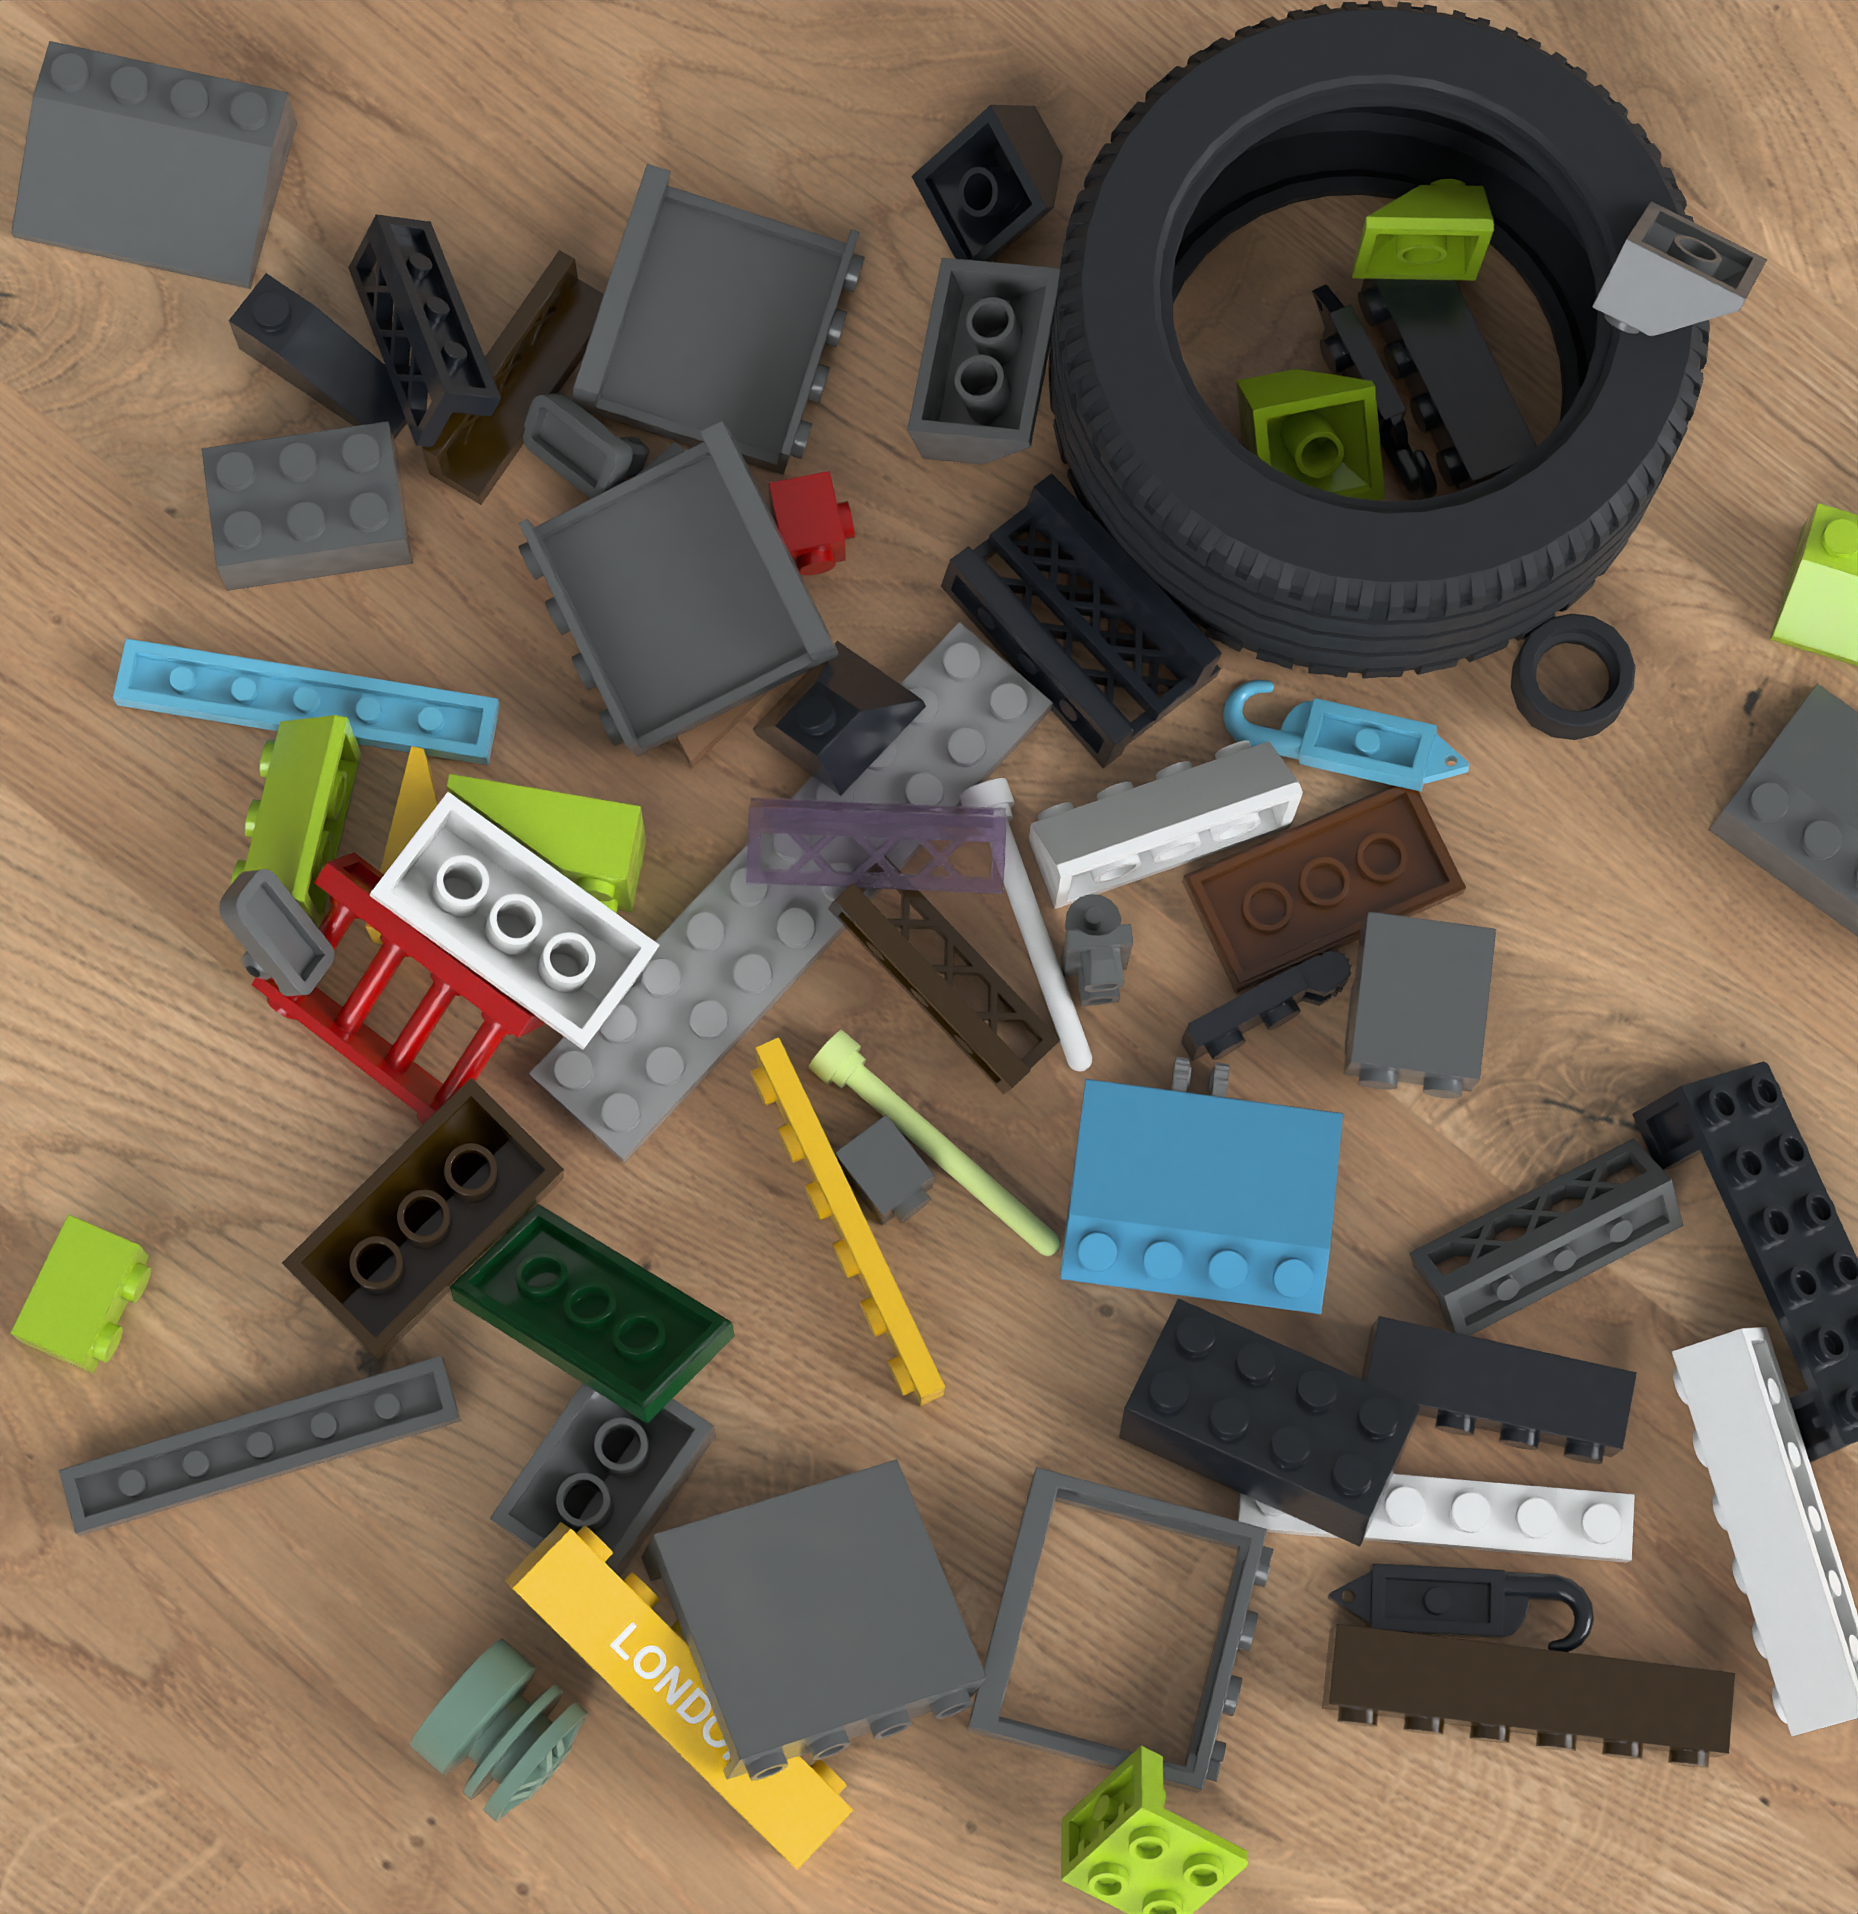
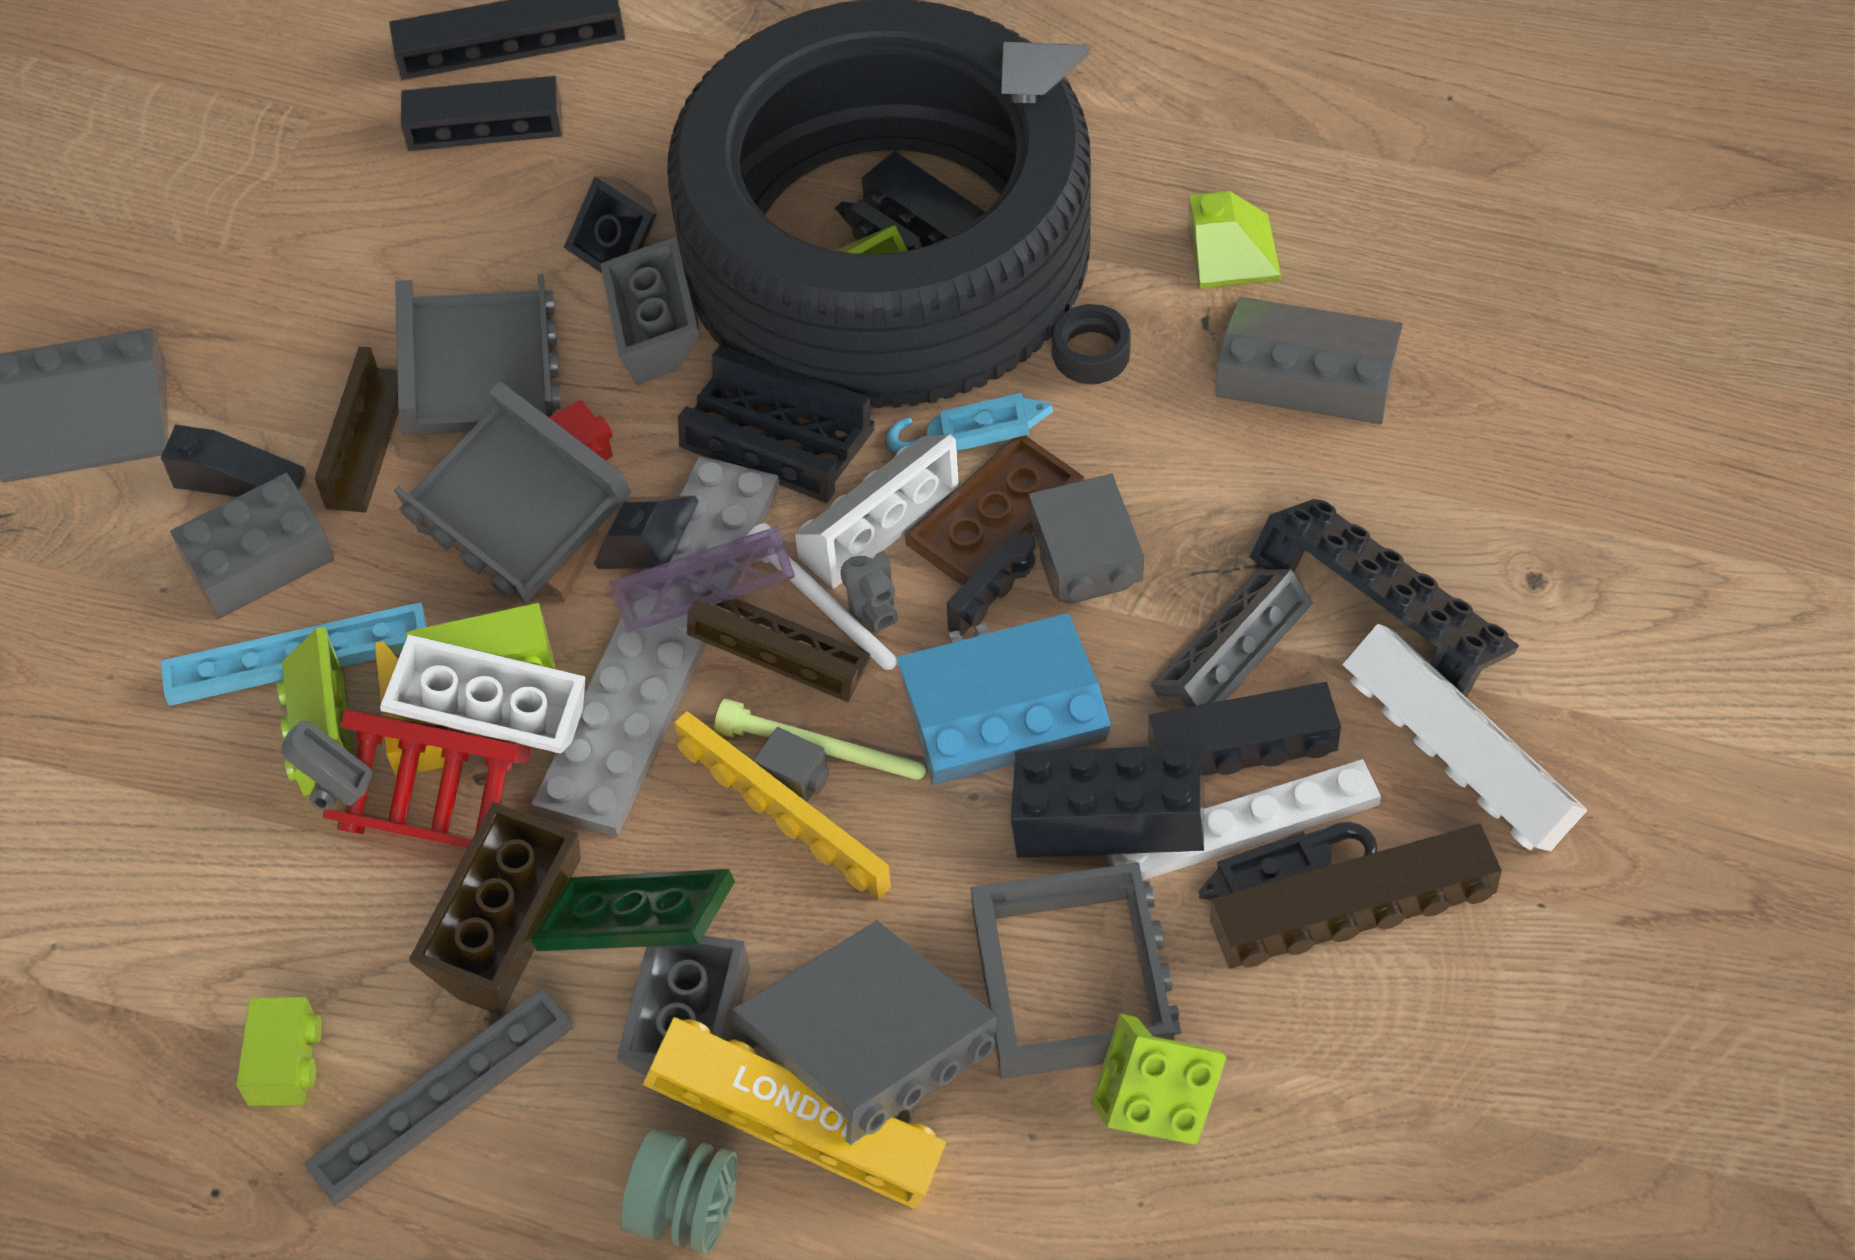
camera: 15 degrees left, 20 degrees down
(425, 319) = (290, 407): black fence -> none
(580, 445) = (413, 447): dark grey piece -> none
(1427, 235) = (888, 141): lime slope -> none

